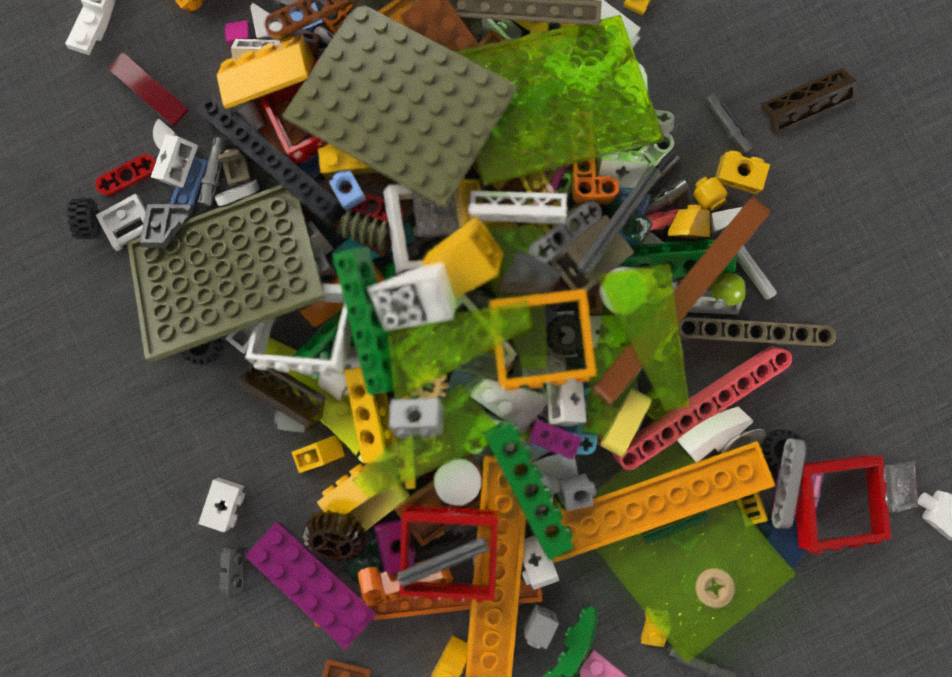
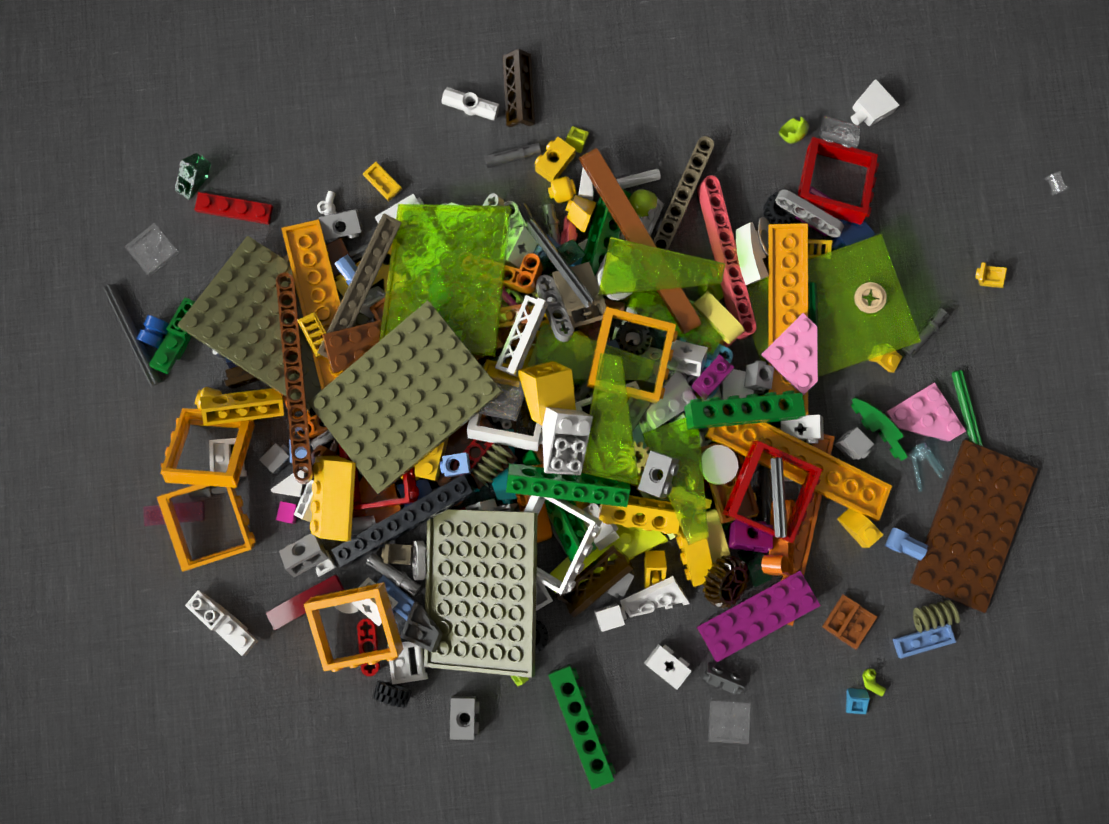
camera: 75 degrees left, 5 degrees down
(75, 304) = (464, 730): none -> light grey brick
(78, 468) = (596, 776): none -> green brick
(161, 176) = (342, 597): none -> light orange window
(187, 592) = (729, 722): none -> clear plate
(195, 66) = (303, 554): none -> light grey brick
(197, 94) = (325, 566): none -> white tile
(249, 422) = (610, 617): none -> white brick
(295, 468) = (659, 595): none -> white wing
(529, 276) = (579, 347): dark grey wing -> none
(617, 525) = (796, 354): none -> bright pink plate
(771, 39) = (481, 107): none -> white piece
(776, 188) = (577, 138): none -> neon yellow slope
(882, 432) = (794, 130): none -> lime hair

